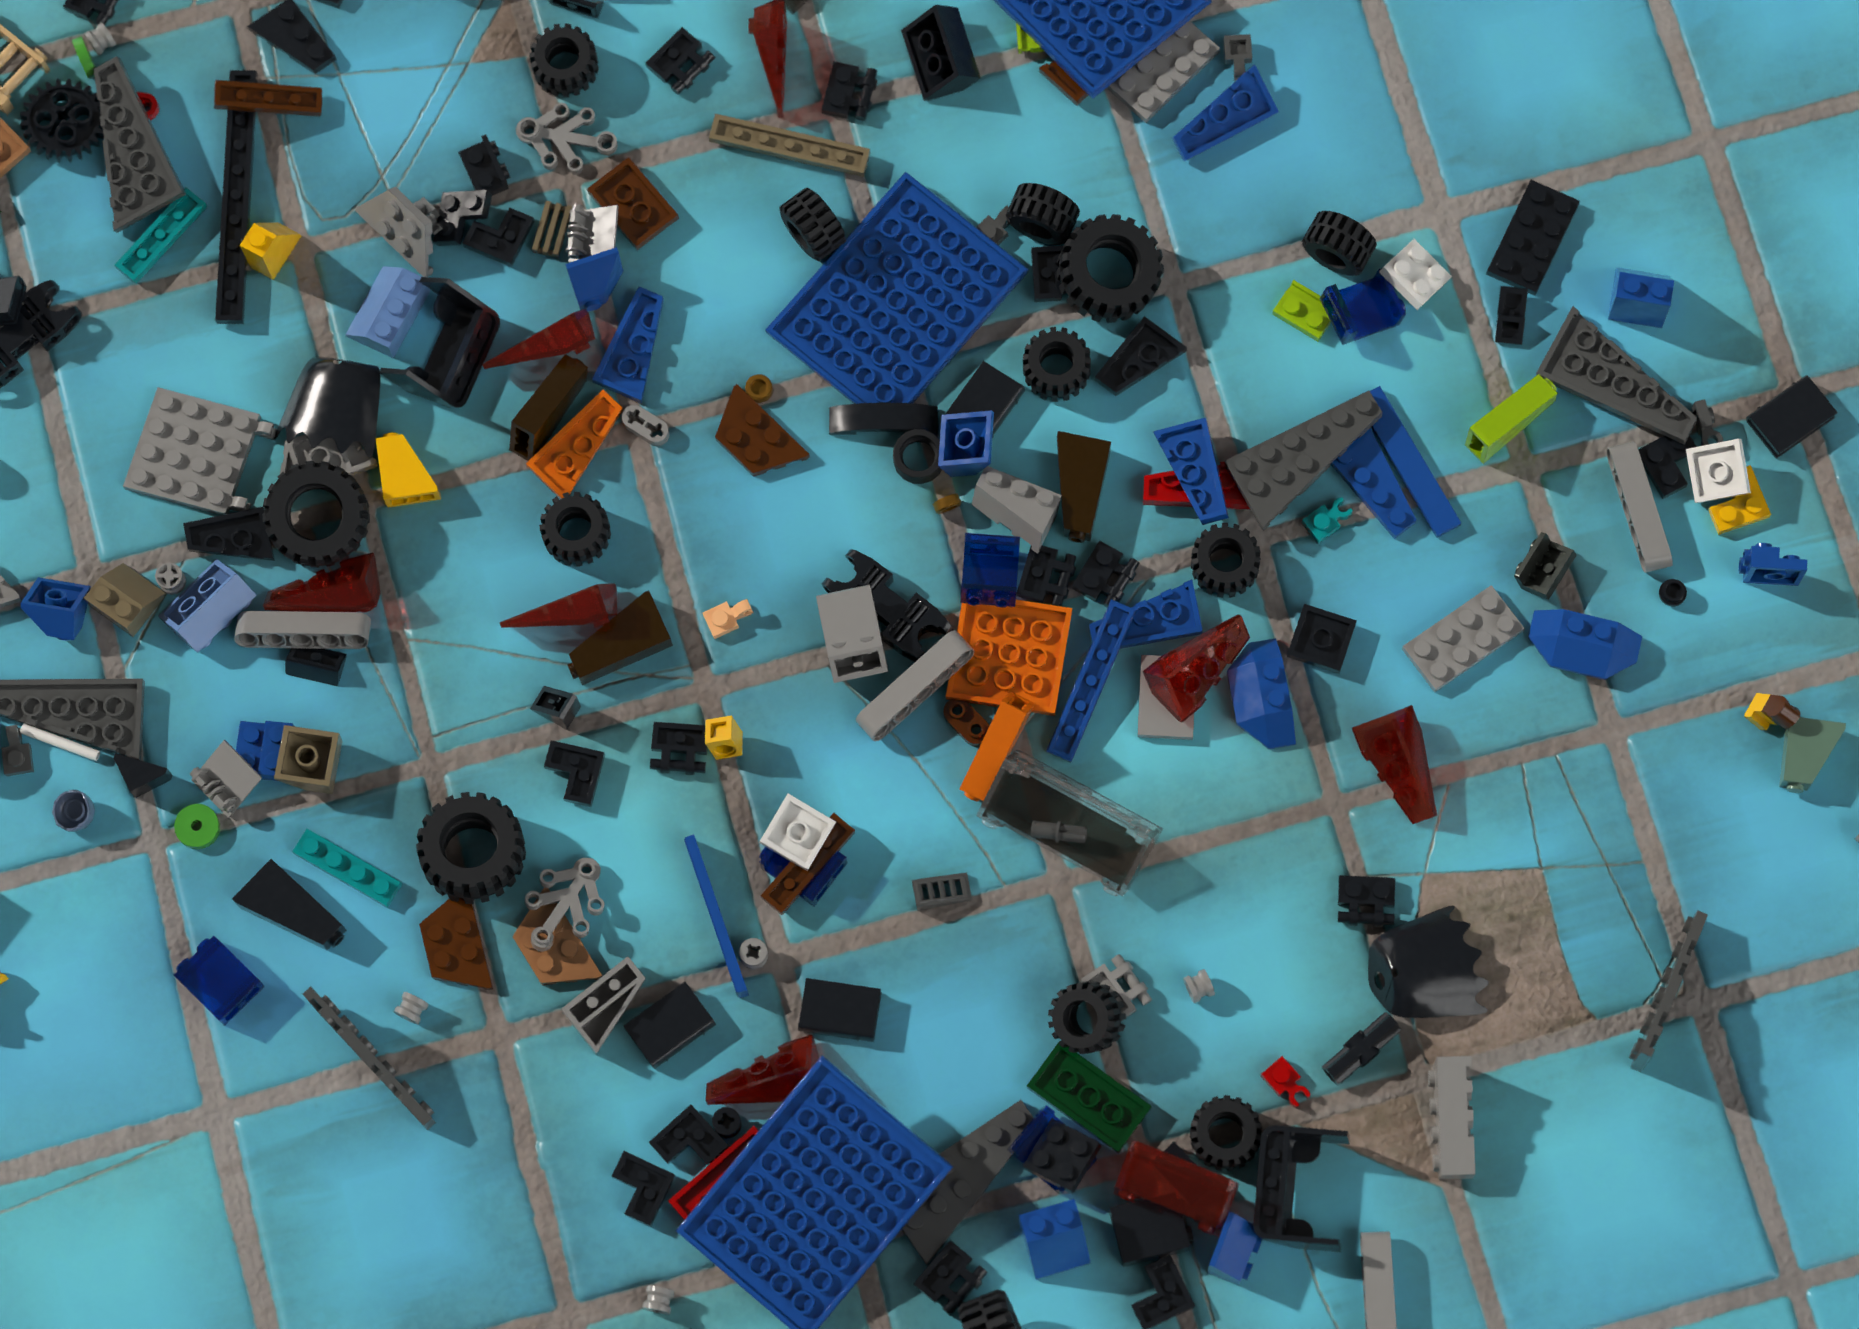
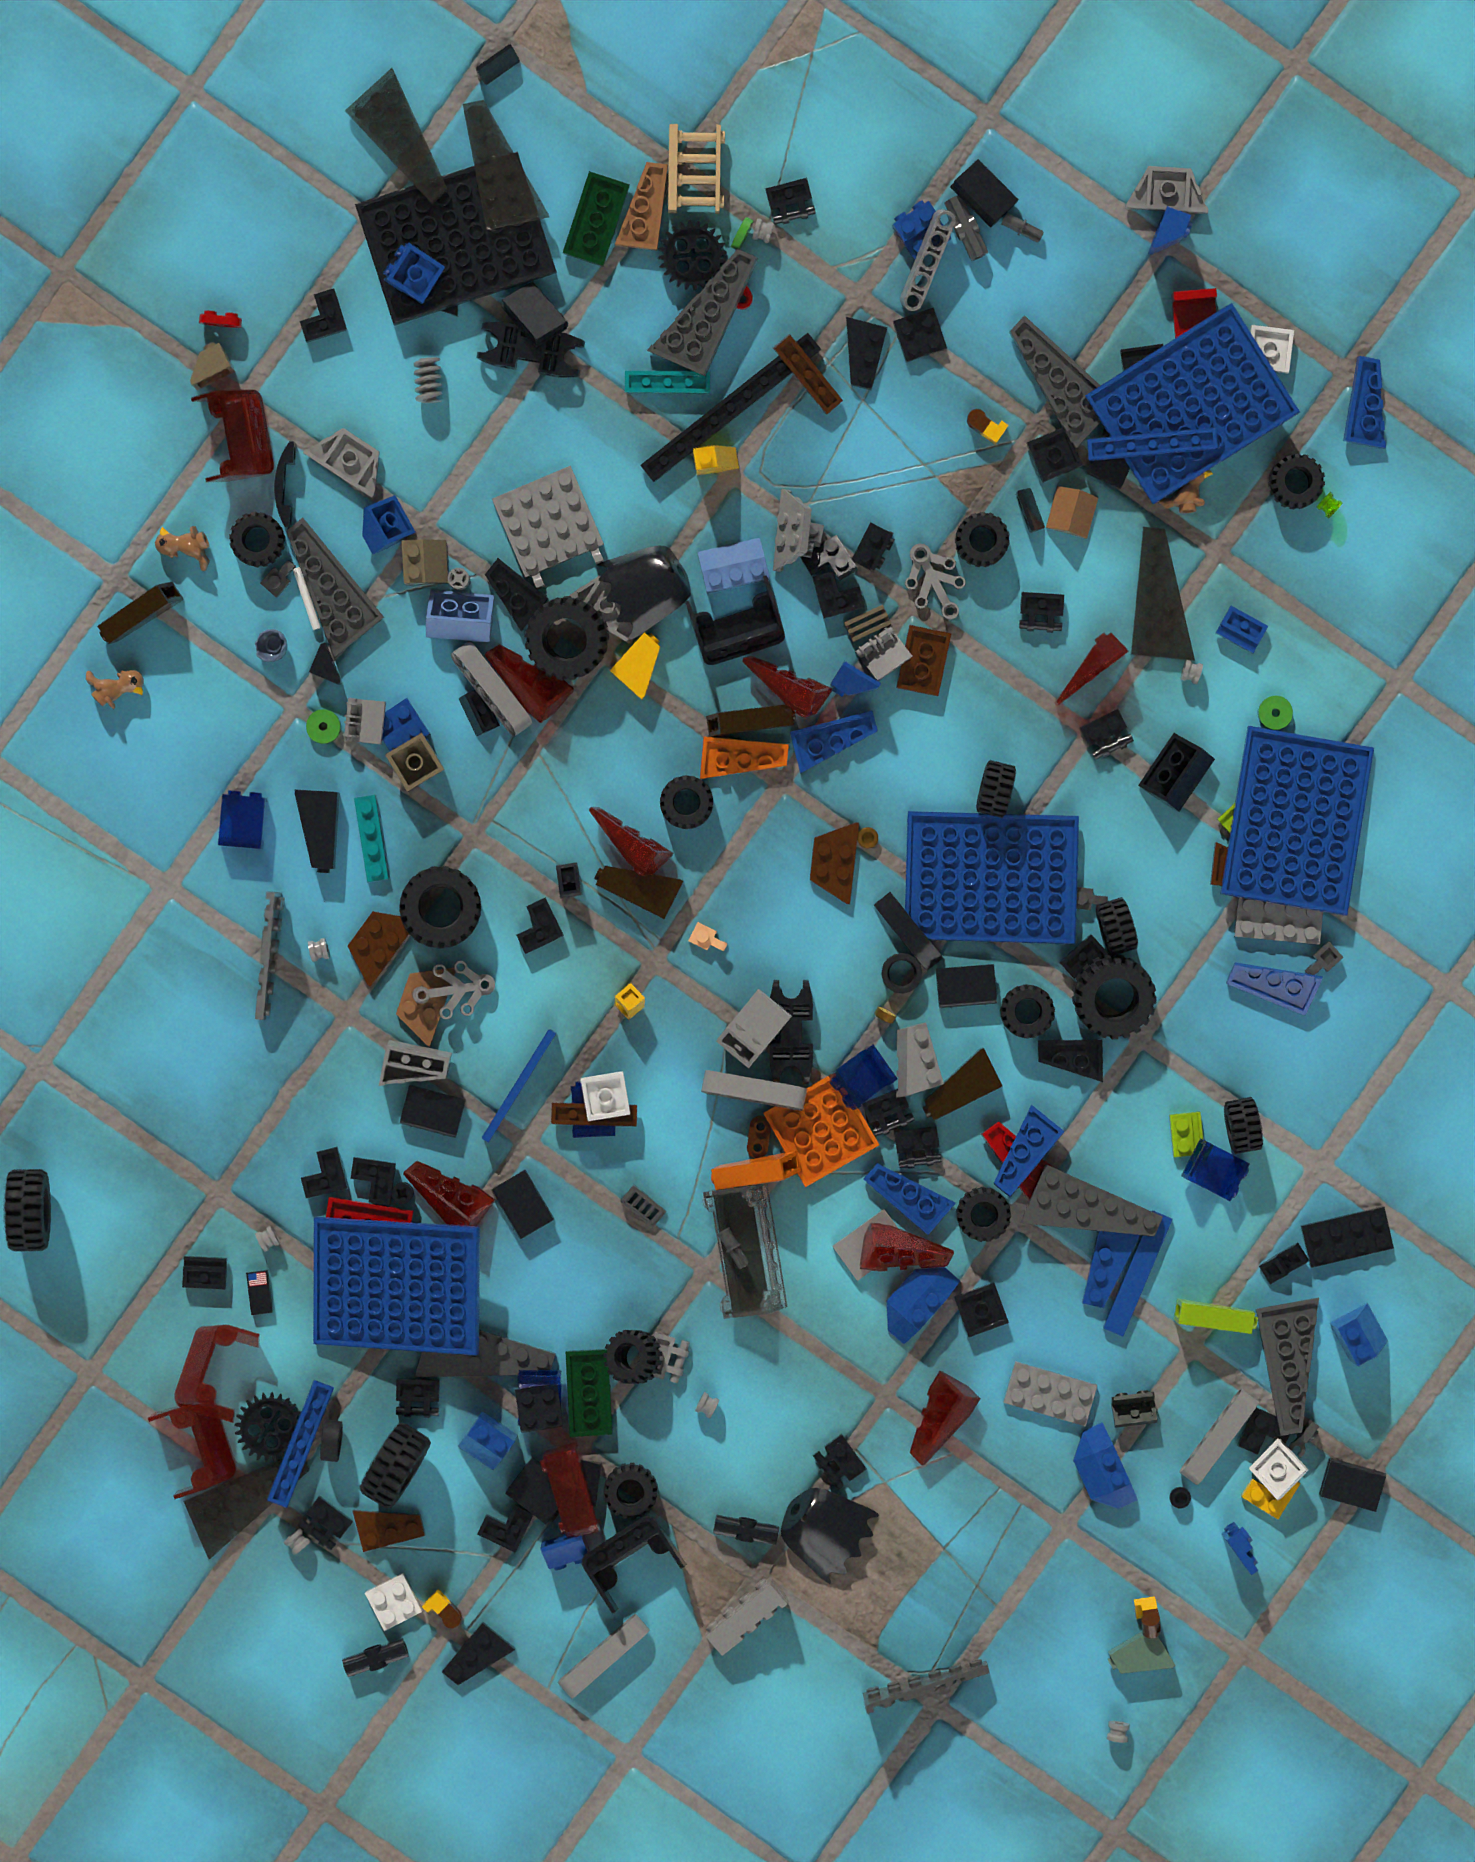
camera: 45 degrees right, 15 degrees up
(648, 420) = (793, 788): light grey beam -> none
(678, 739) = (608, 972): black plate -> none
(756, 958) = (518, 1125): light grey wheel -> none
(789, 145) = (1040, 726): dark tan plate -> none
(965, 443) = (931, 999): blue slope -> none
(1091, 681) = (842, 1192): blue tile -> none
(1283, 1079) = (691, 1496): red plate -> none
(1325, 522) = (1057, 1252): teal plate -> none
(1415, 274) = (1262, 1185): white plate -> none

